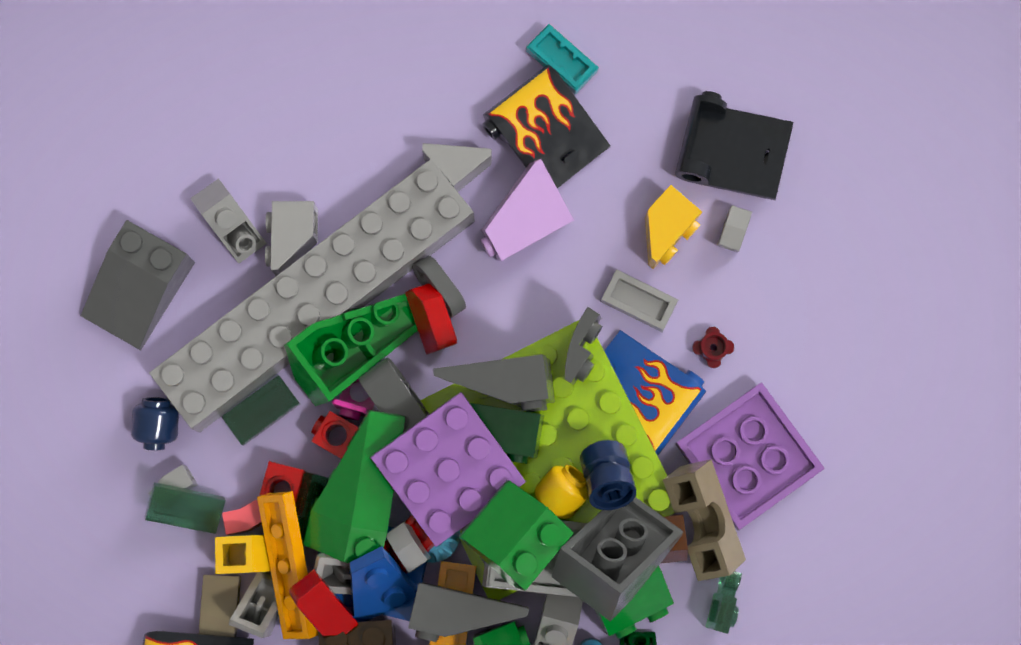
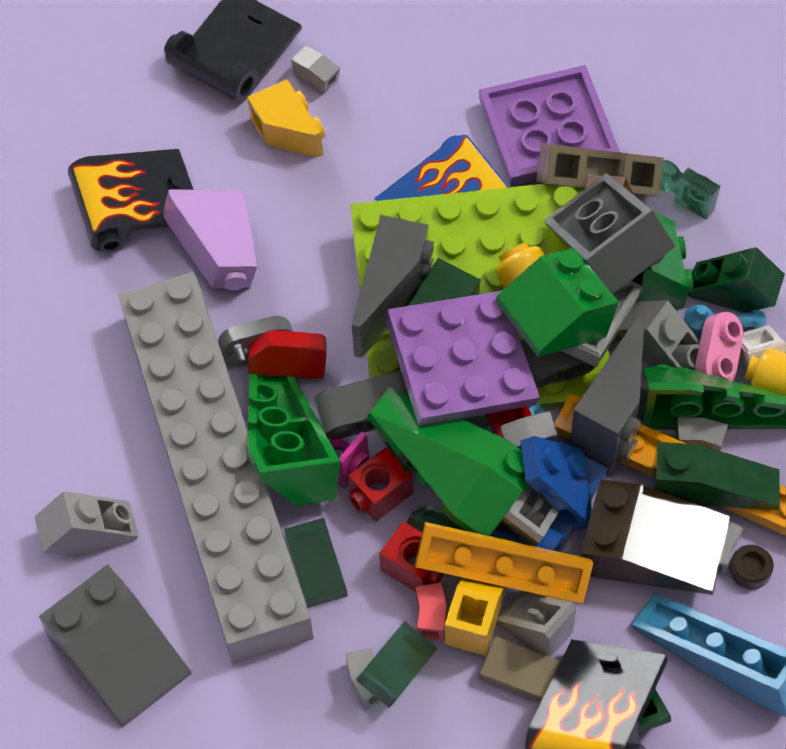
camera: 65 degrees left, 20 degrees down
(155, 423) = (285, 670): dark blue head -> none
(292, 232) = (129, 464): light grey slope -> none
(322, 605) = (560, 529): red piece -> none
(458, 163) = (129, 274): light grey slope -> none
(570, 63) = (51, 164): teal plate -> none
(578, 358) = (370, 199): dark grey slope -> none
(607, 475) = (524, 216): dark blue wheel -> none
(639, 300) = (350, 172): light grey tile -> none
(714, 337) = (426, 115): dark red plate -> none

